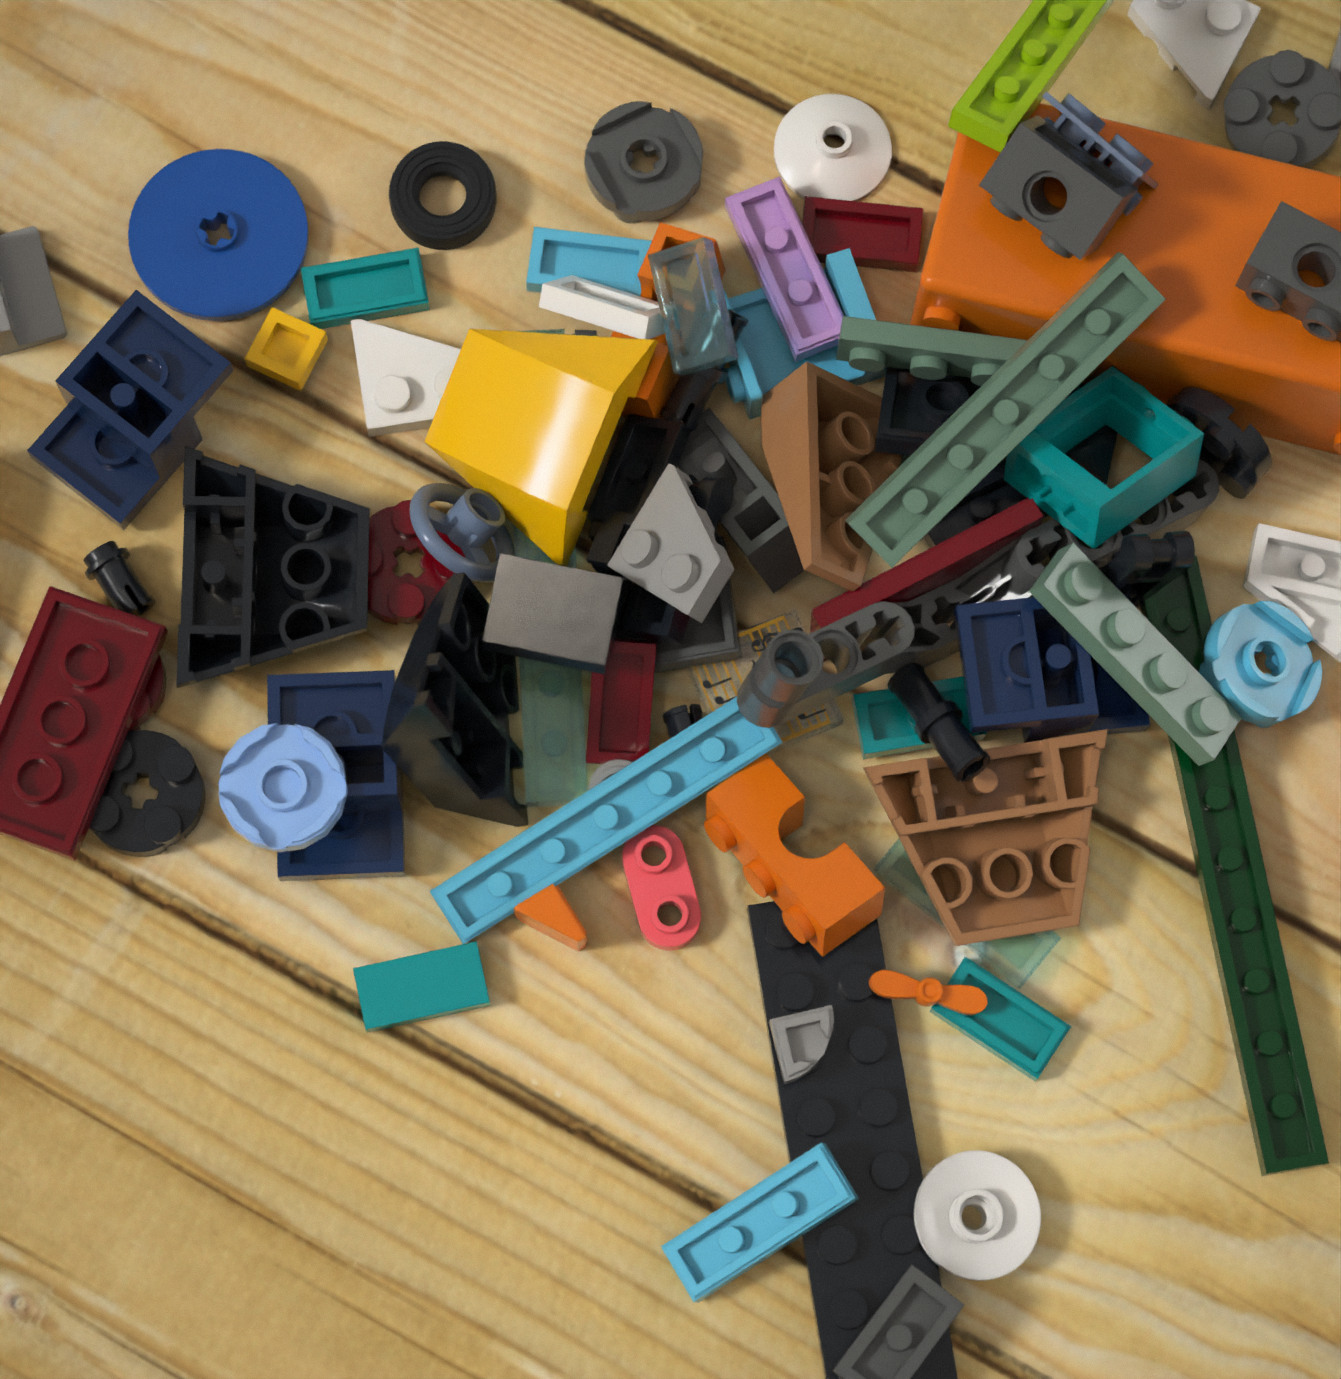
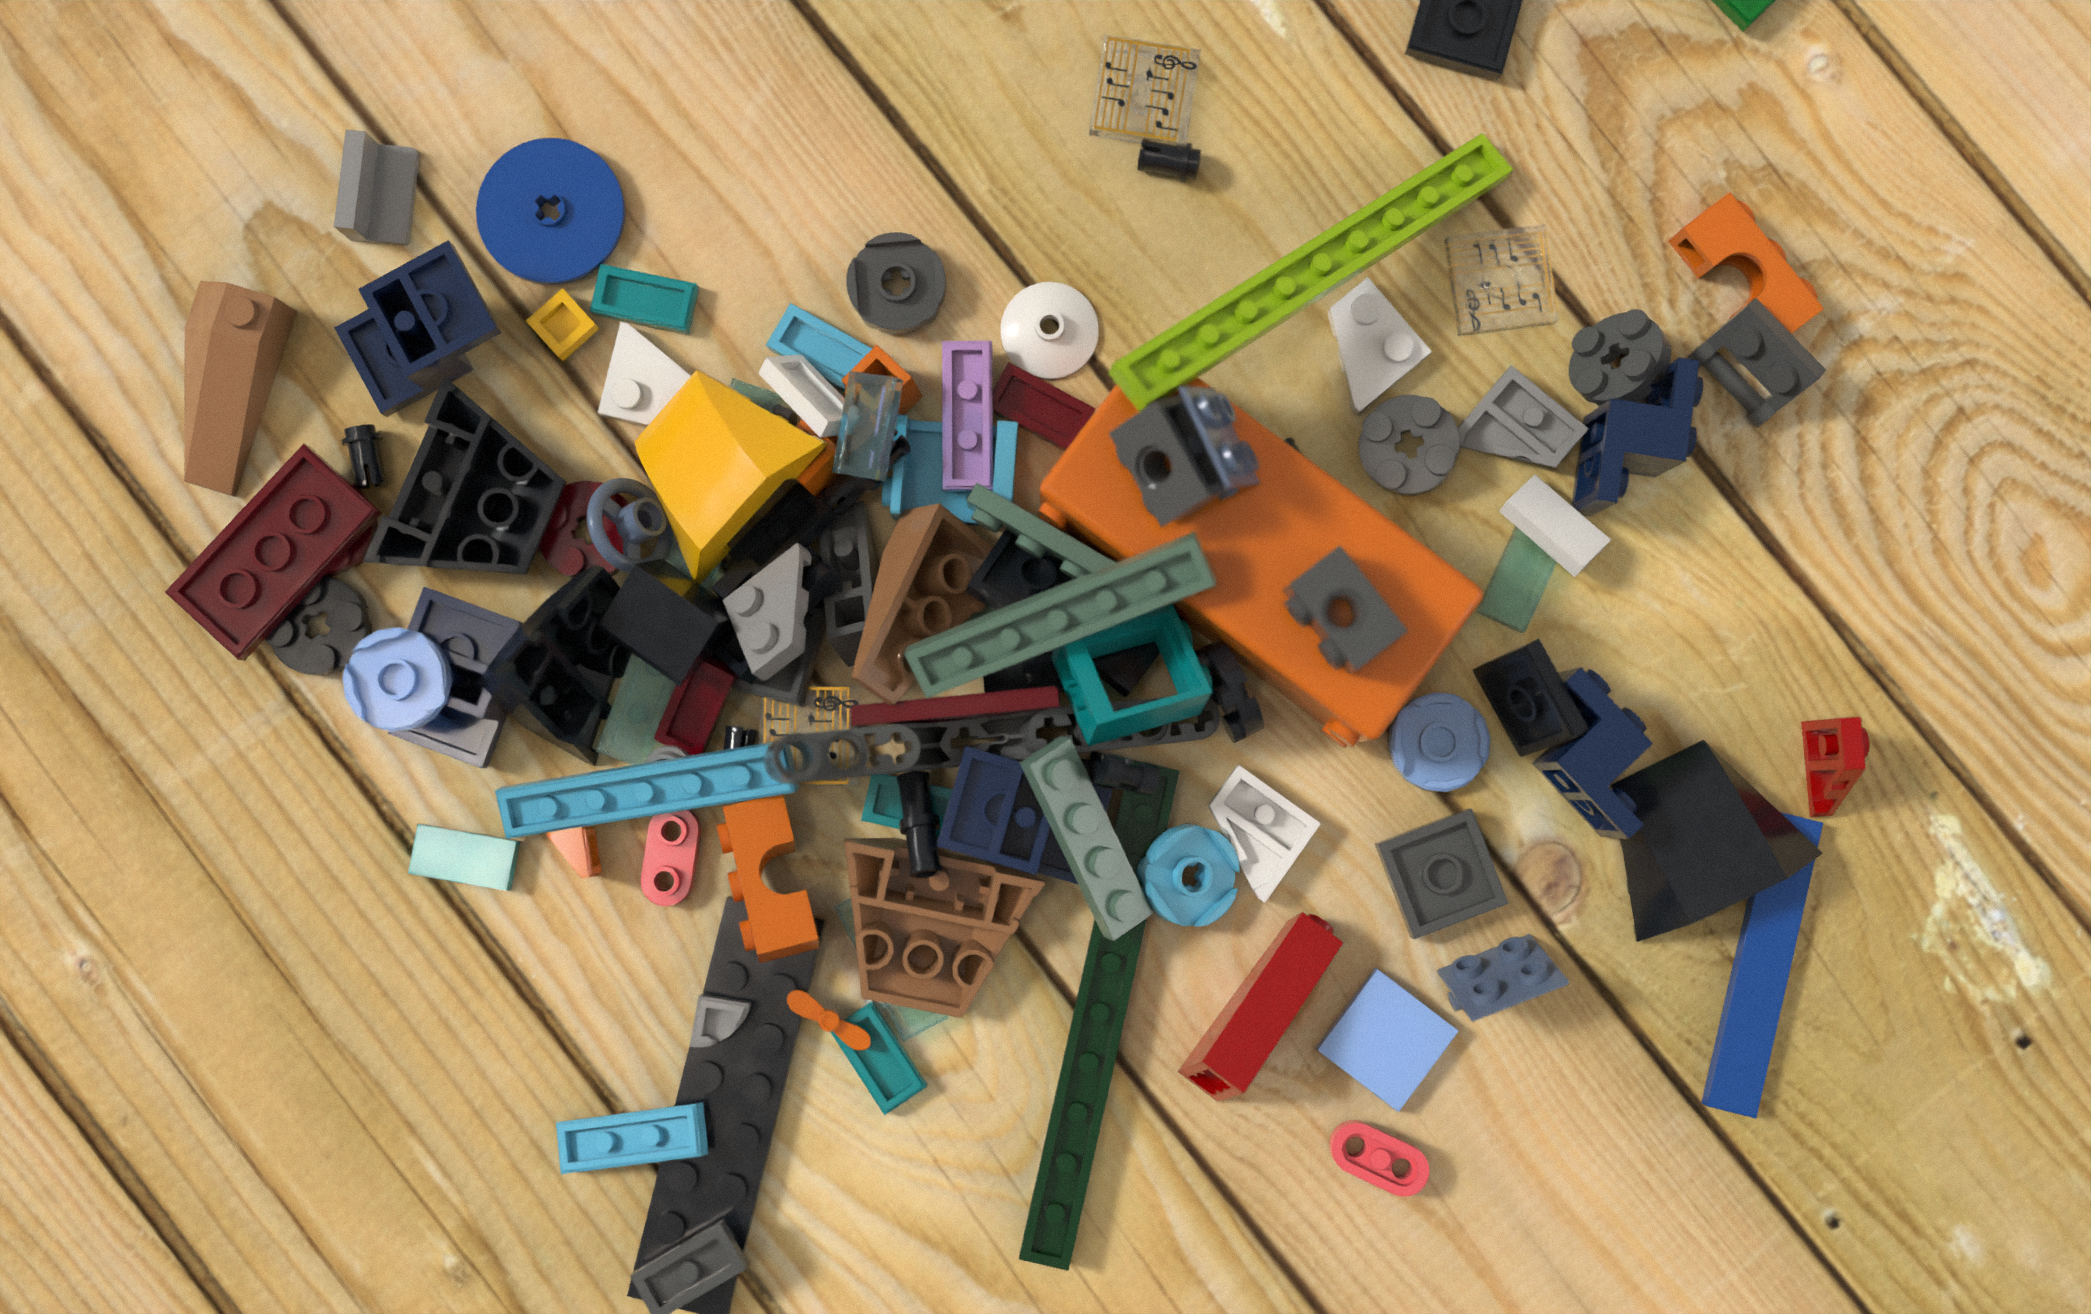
camera: 25 degrees right, 10 degrees up
(437, 160) = (732, 218): black tyre -> none
(1006, 1207) = (799, 1224): white dish -> none

